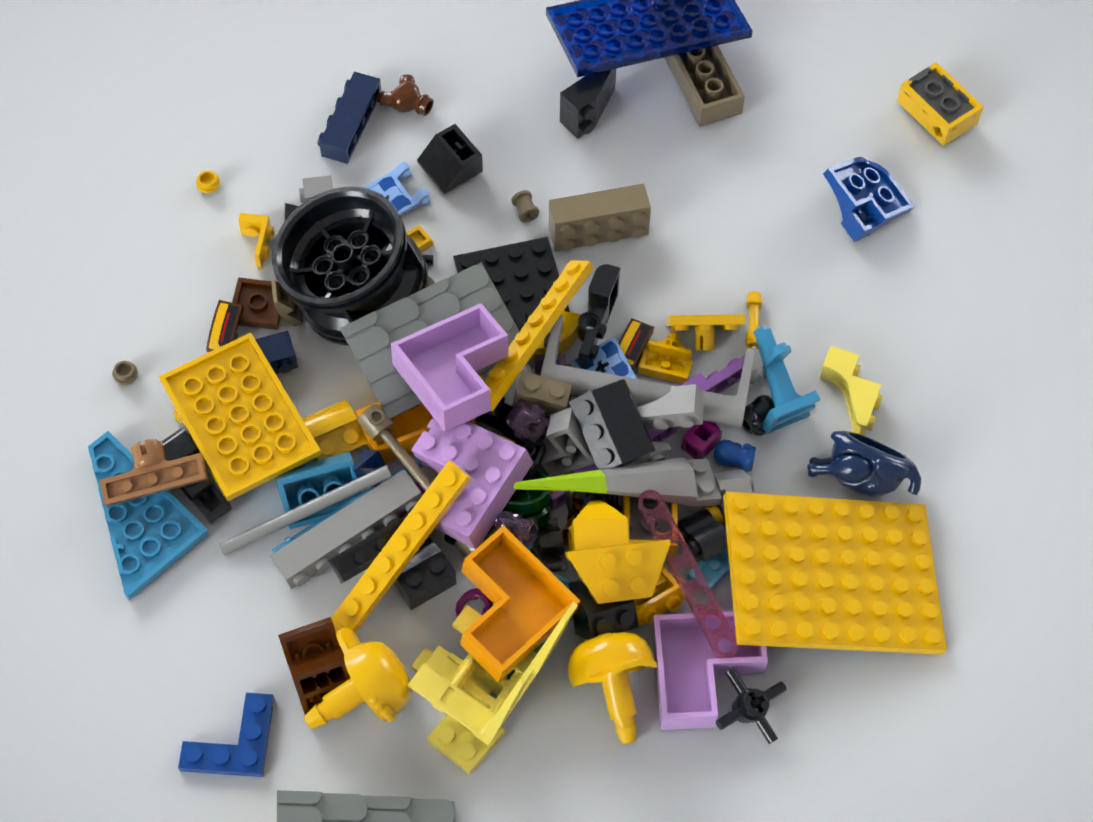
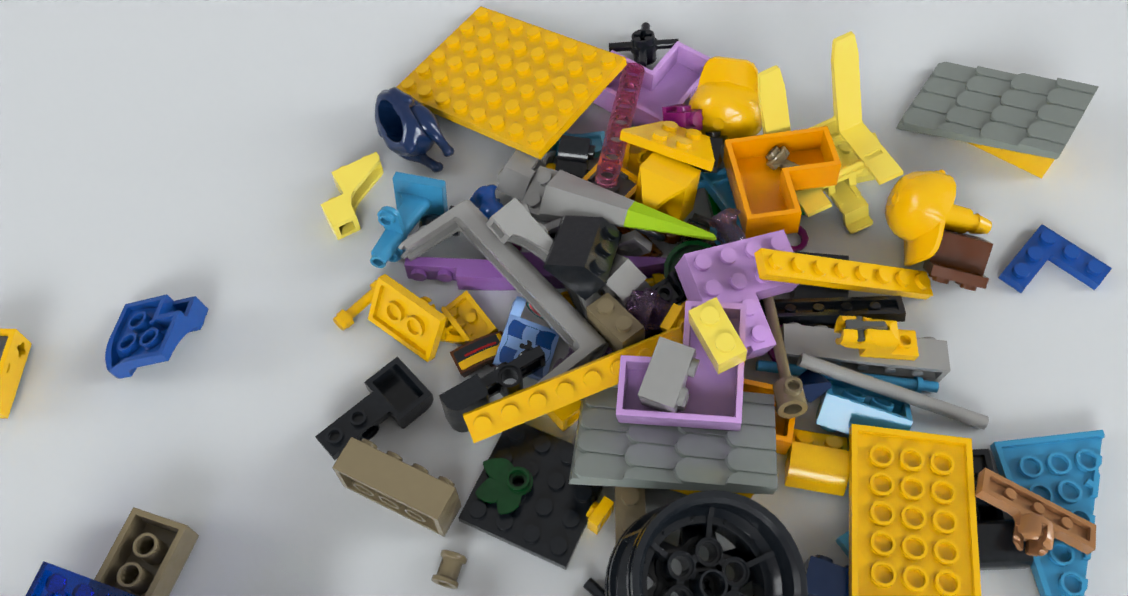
camera: 140 degrees left, 0 degrees up
(340, 523) = (876, 338): none -> yellow plate
(445, 367) = (717, 335): none -> light yellow brick
(459, 330) = (667, 376): none -> light grey brick
(499, 422) = (674, 318): none -> yellow plate
(525, 629) = (777, 158): none -> dark tan plate
(534, 264) = (500, 485): none -> dark green plate
(640, 621) = (683, 116): none -> magenta brick
(663, 273) = (392, 393): none -> black plate

